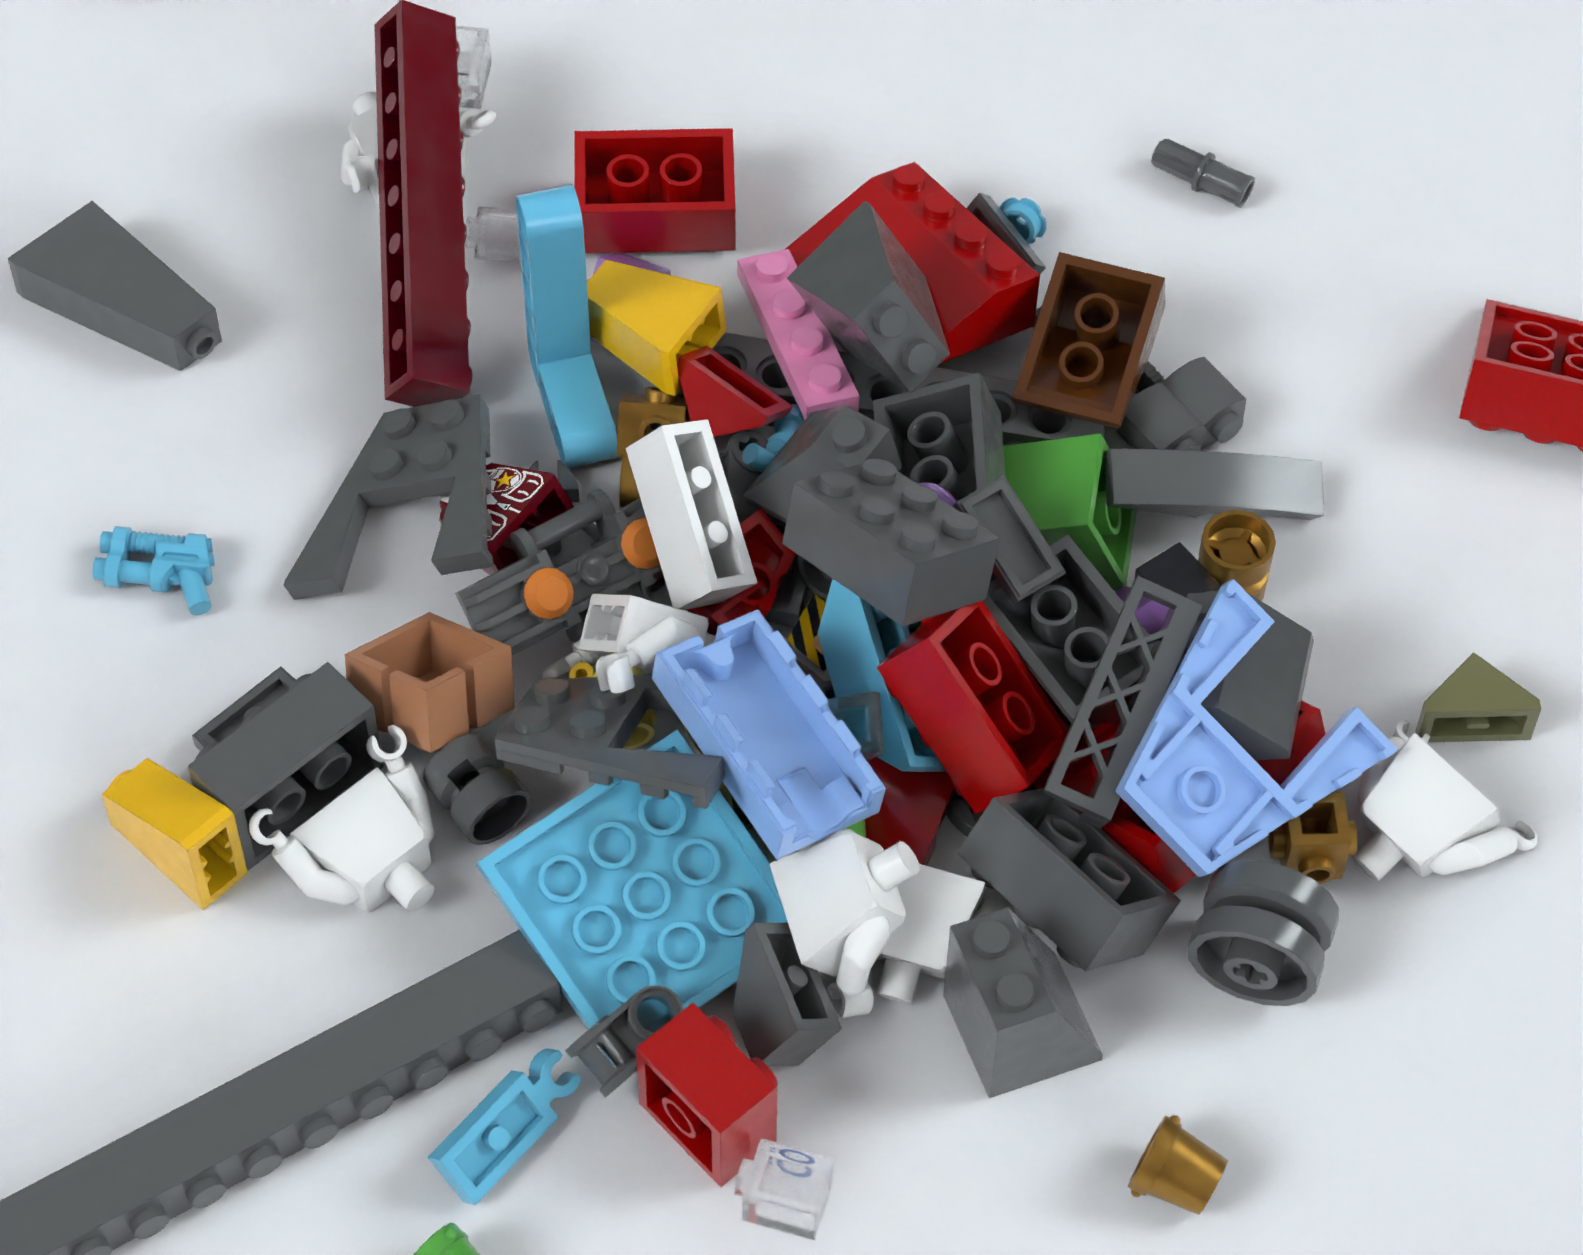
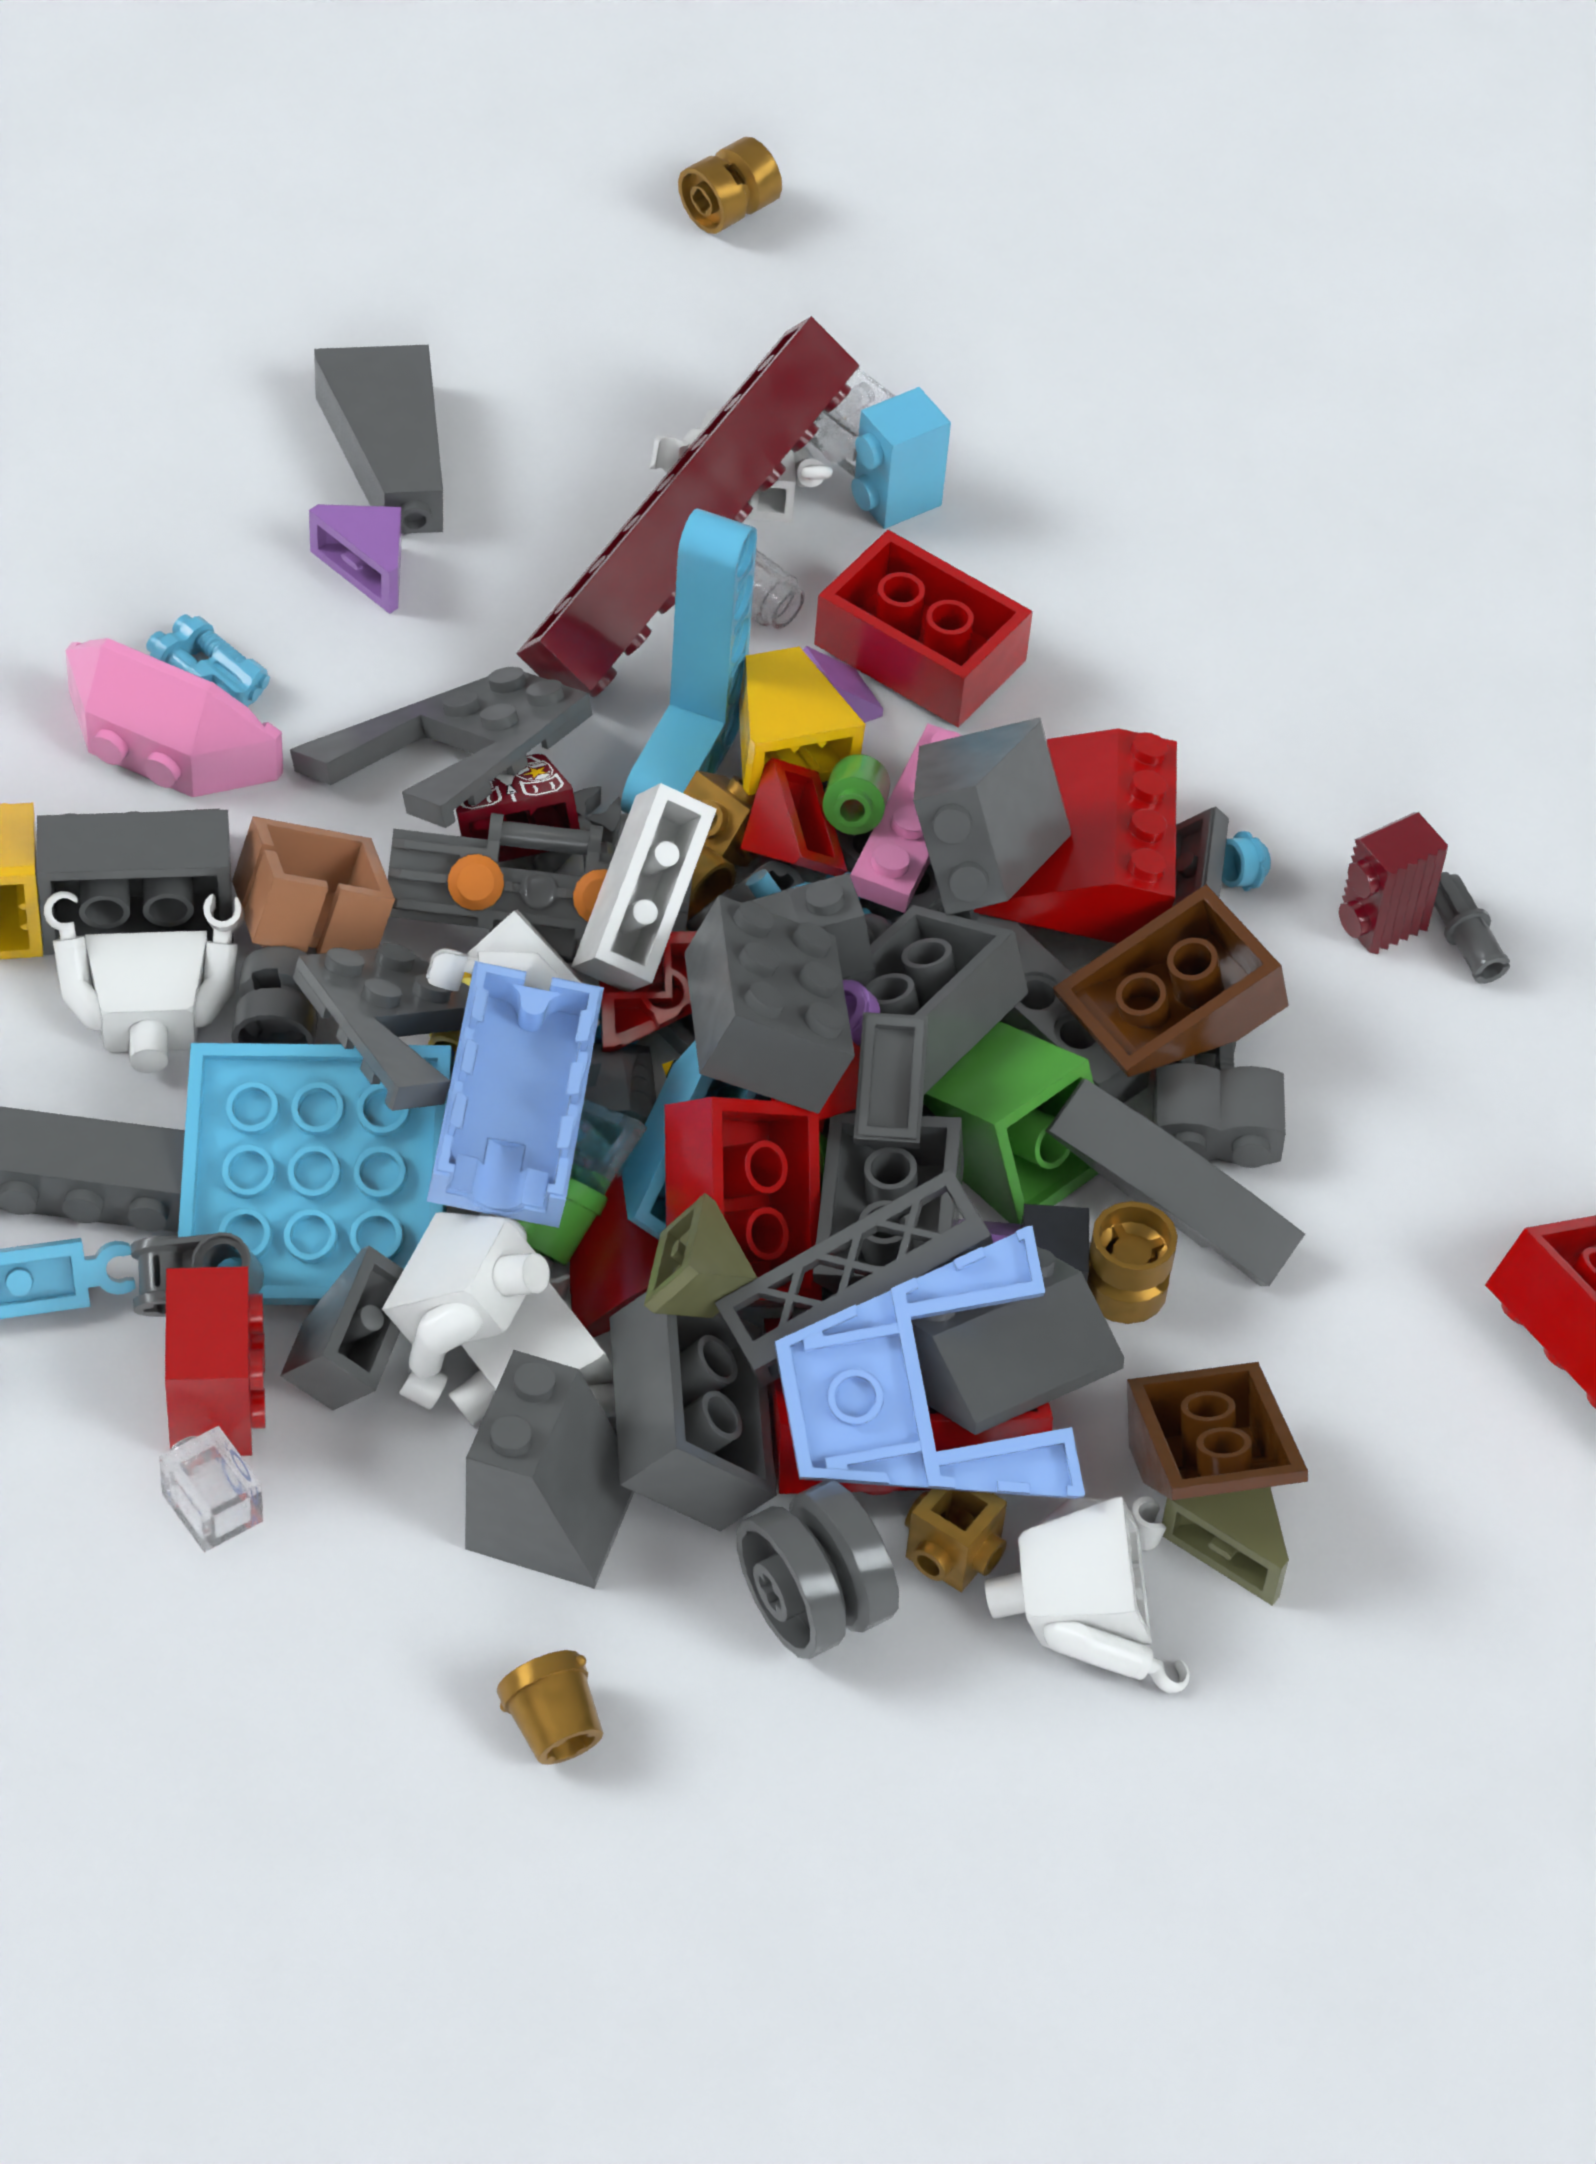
camera: 35 degrees right, 5 degrees down
(171, 627) = (167, 722): none -> bright pink wedge
(188, 392) = (361, 547): none -> medium lavender slope
(522, 70) = (901, 457): none -> medium azure brick
(752, 343) = (856, 794): none -> bright green brick
(1004, 766) = (696, 1263): none -> olive slope
(1145, 170) = (1392, 882): none -> dark red brick
(1422, 650) = (1210, 1432): none -> reddish brown slope

